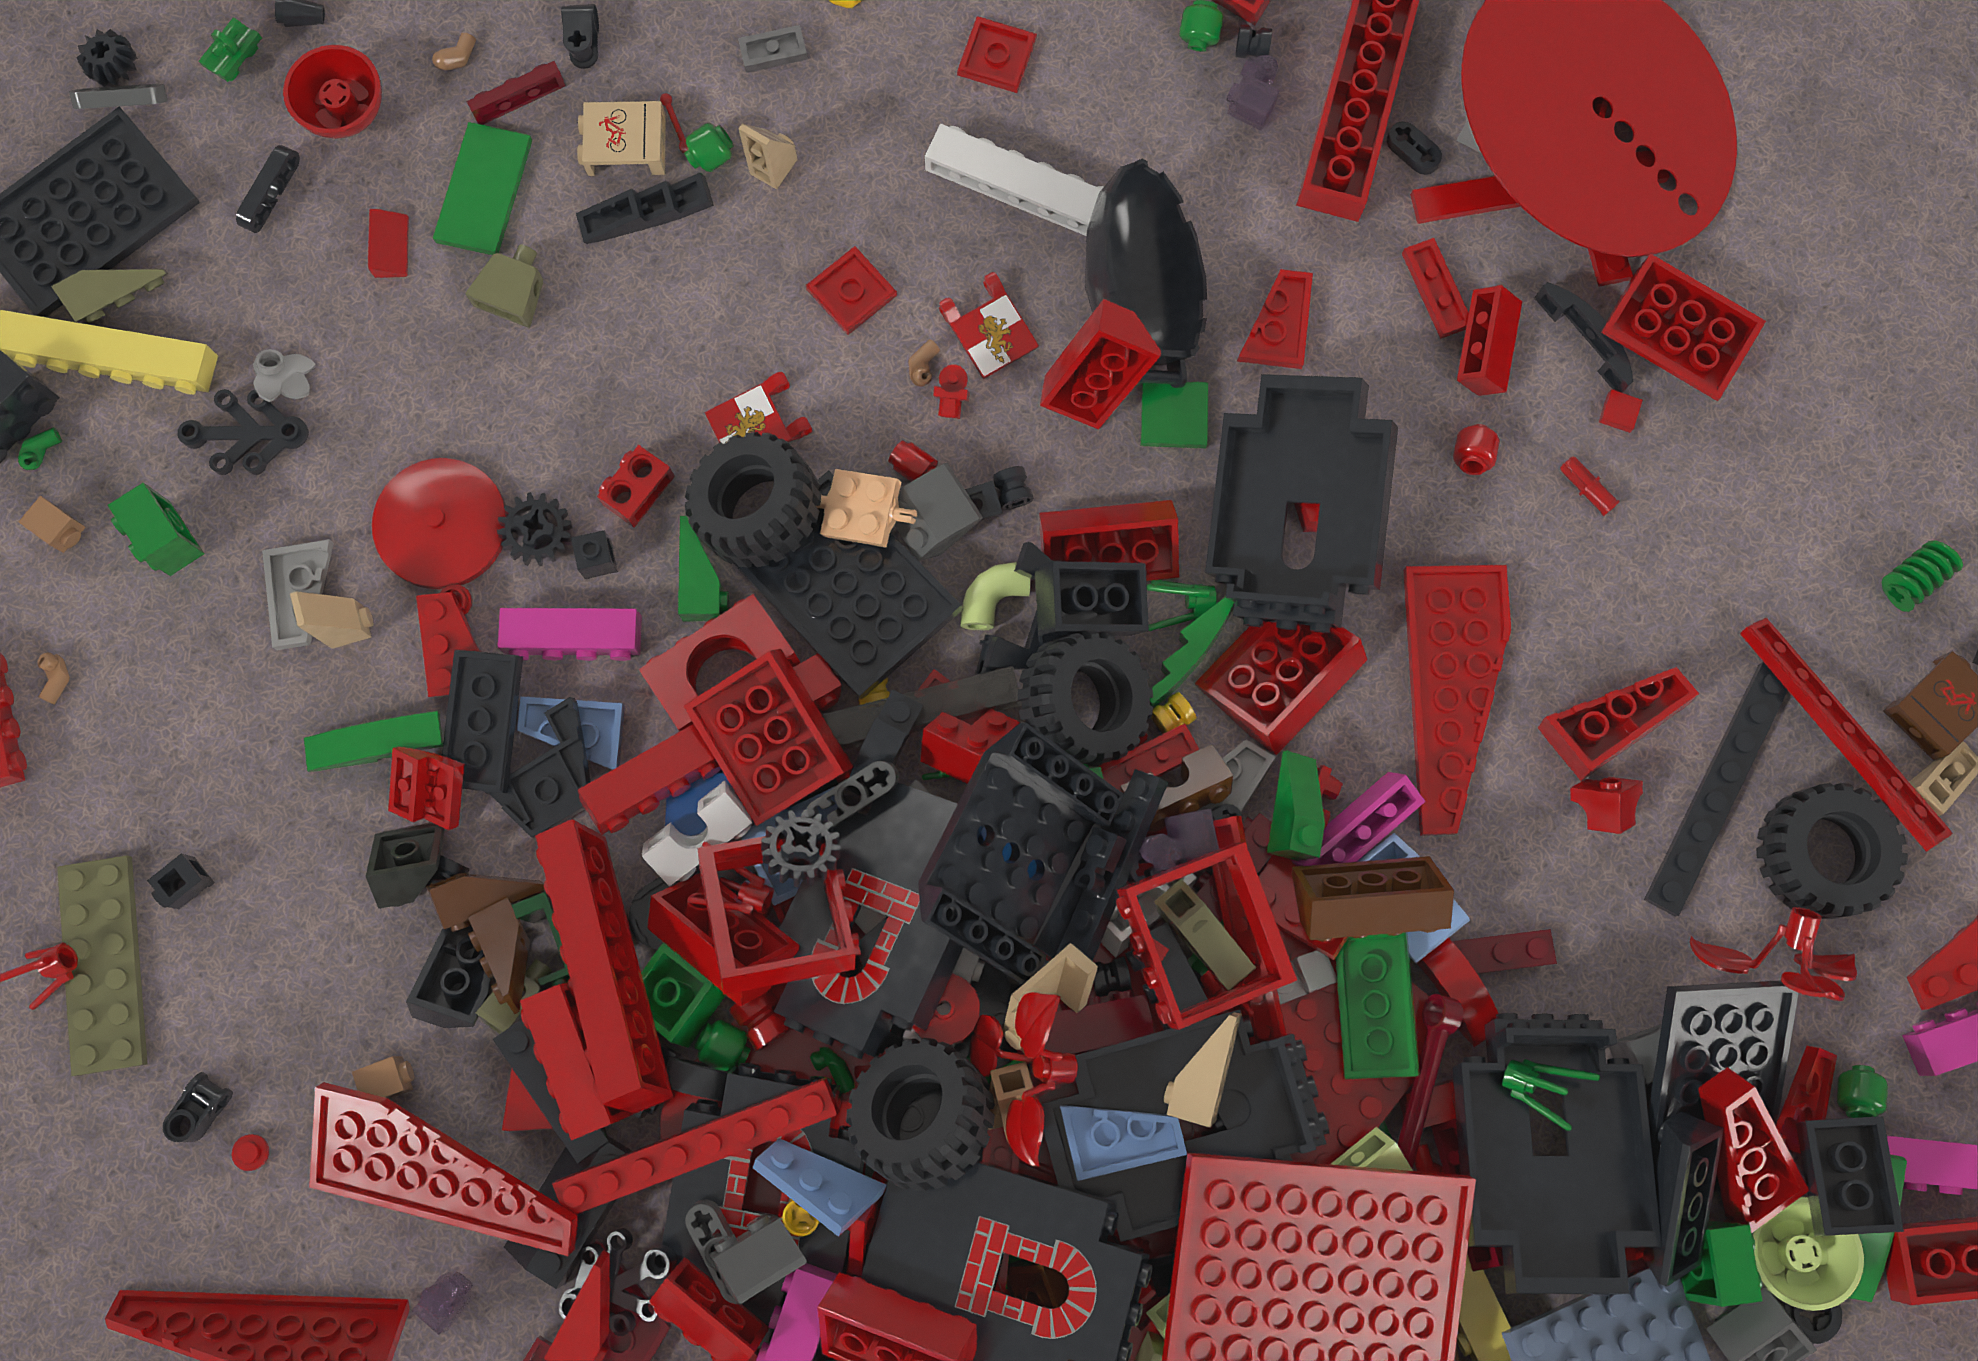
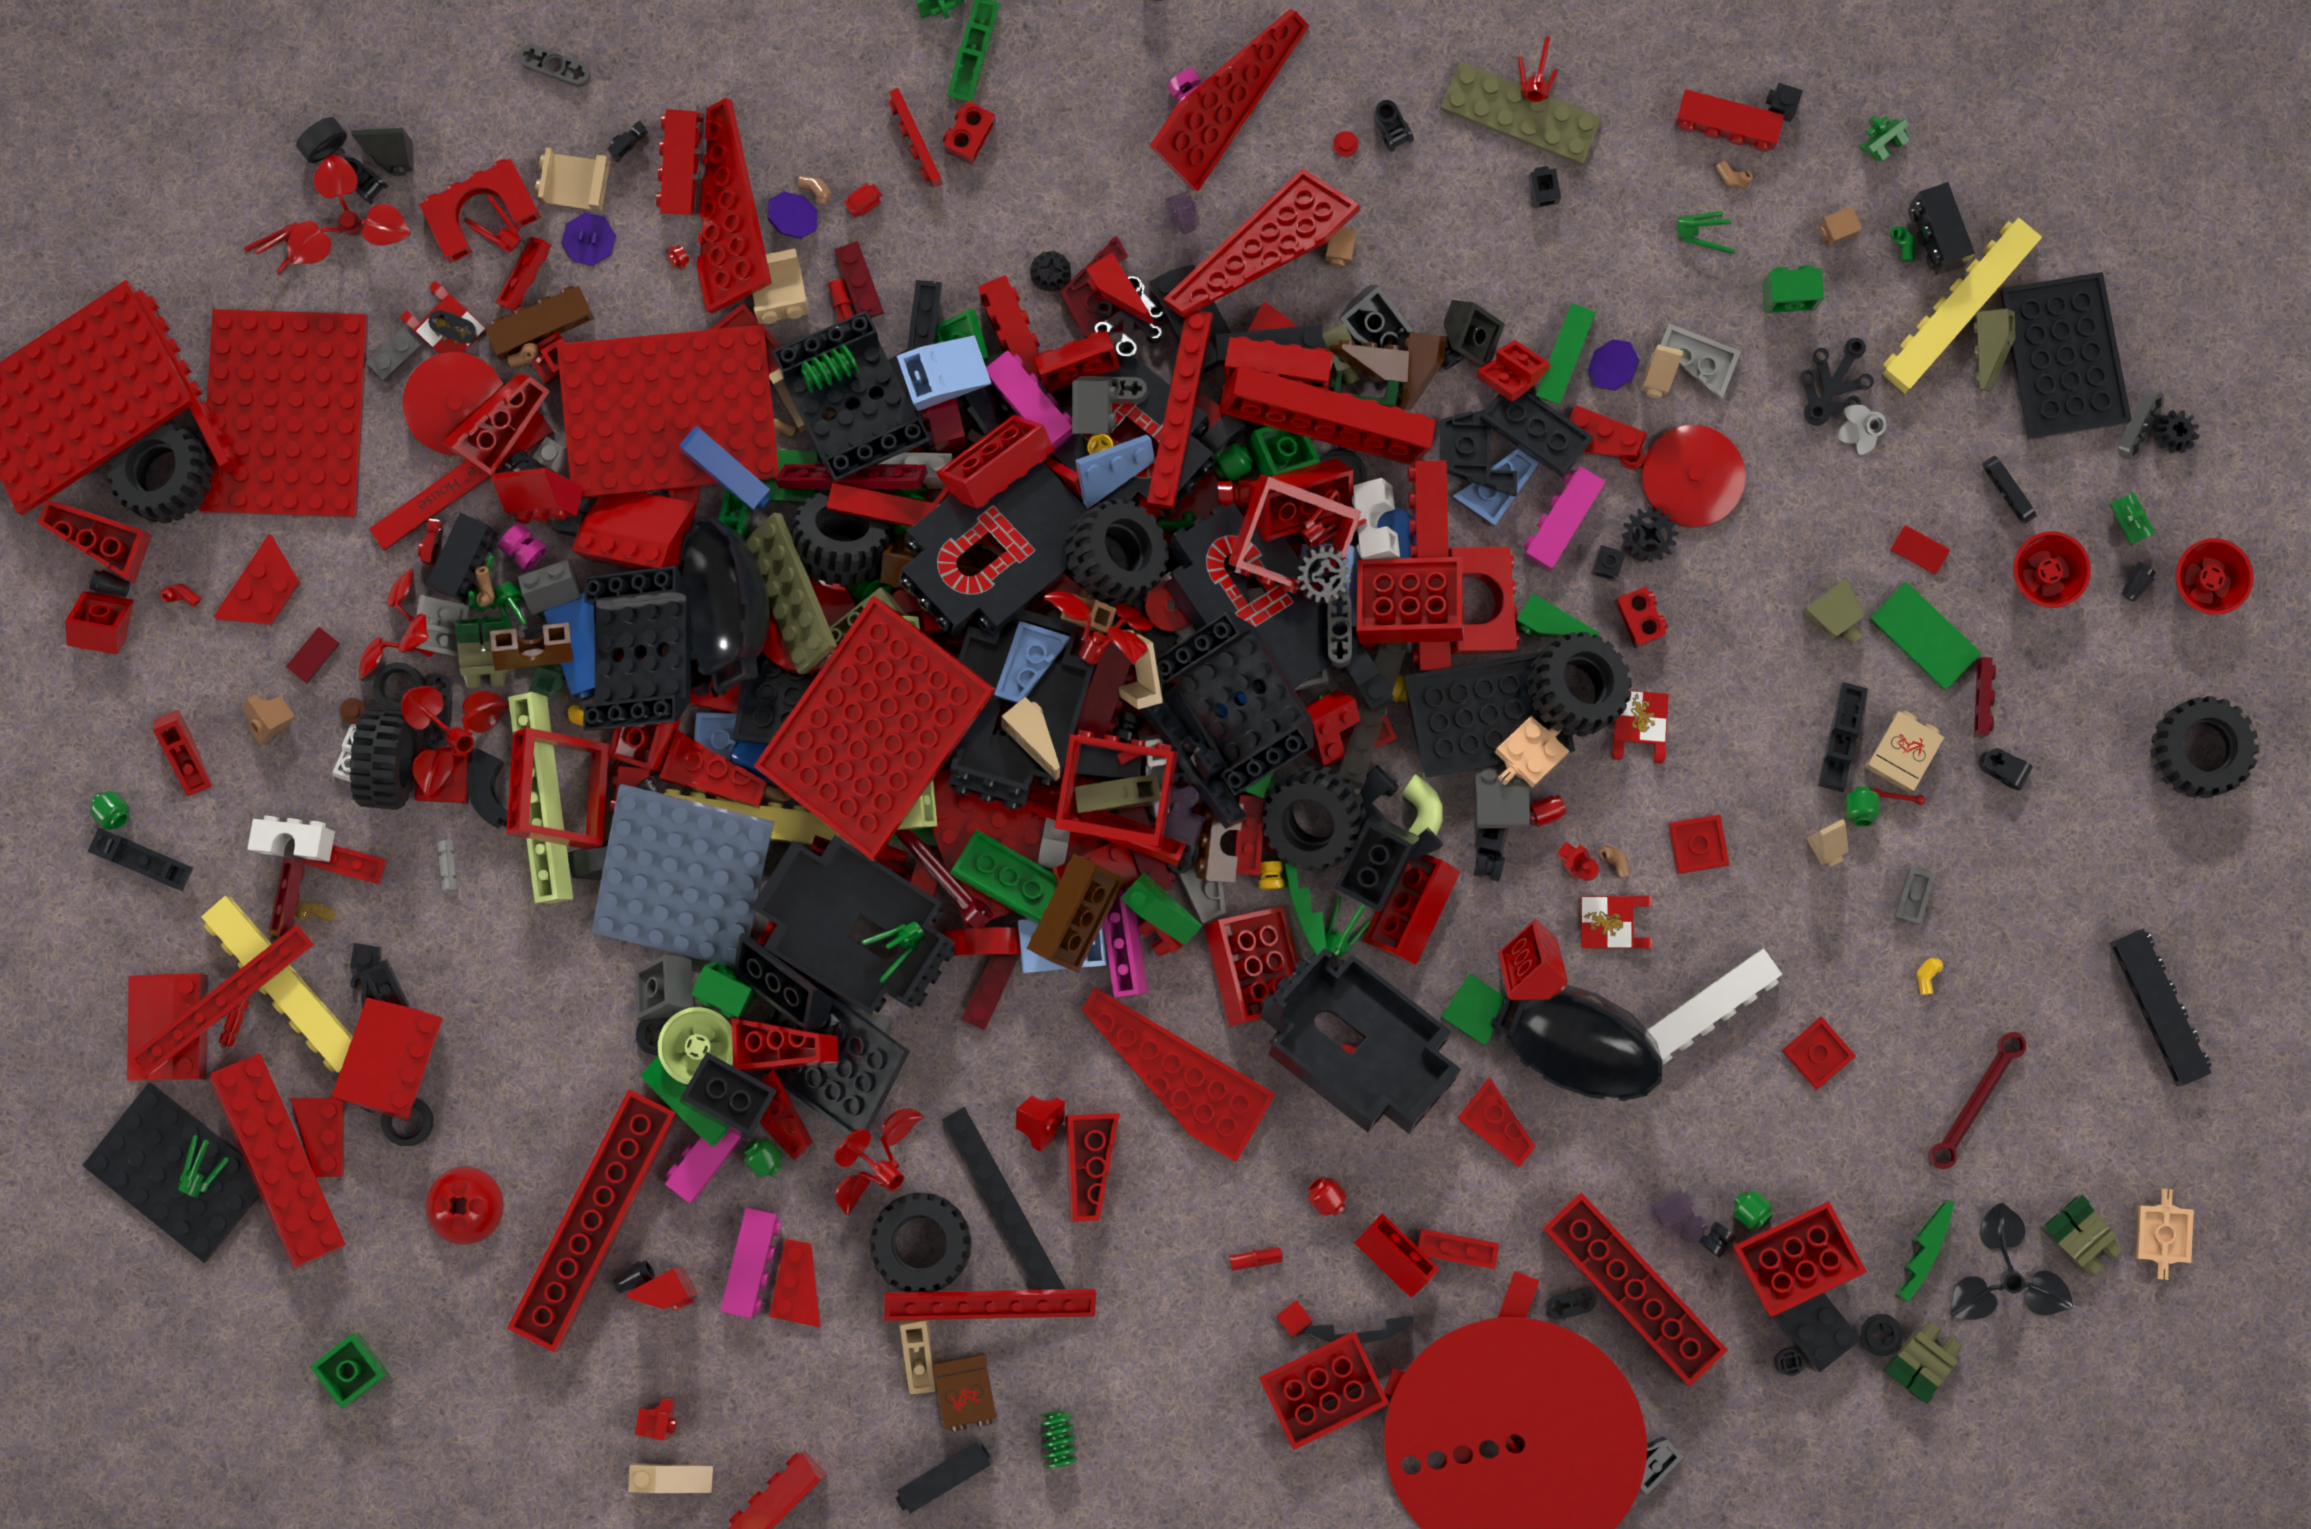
camera: 125 degrees right, 5 degrees up
(140, 690) = (1689, 226): none -> green plant
(356, 679) = (1613, 365): none -> dark purple piece
(456, 56) = (2039, 672): medium nougat arm -> none

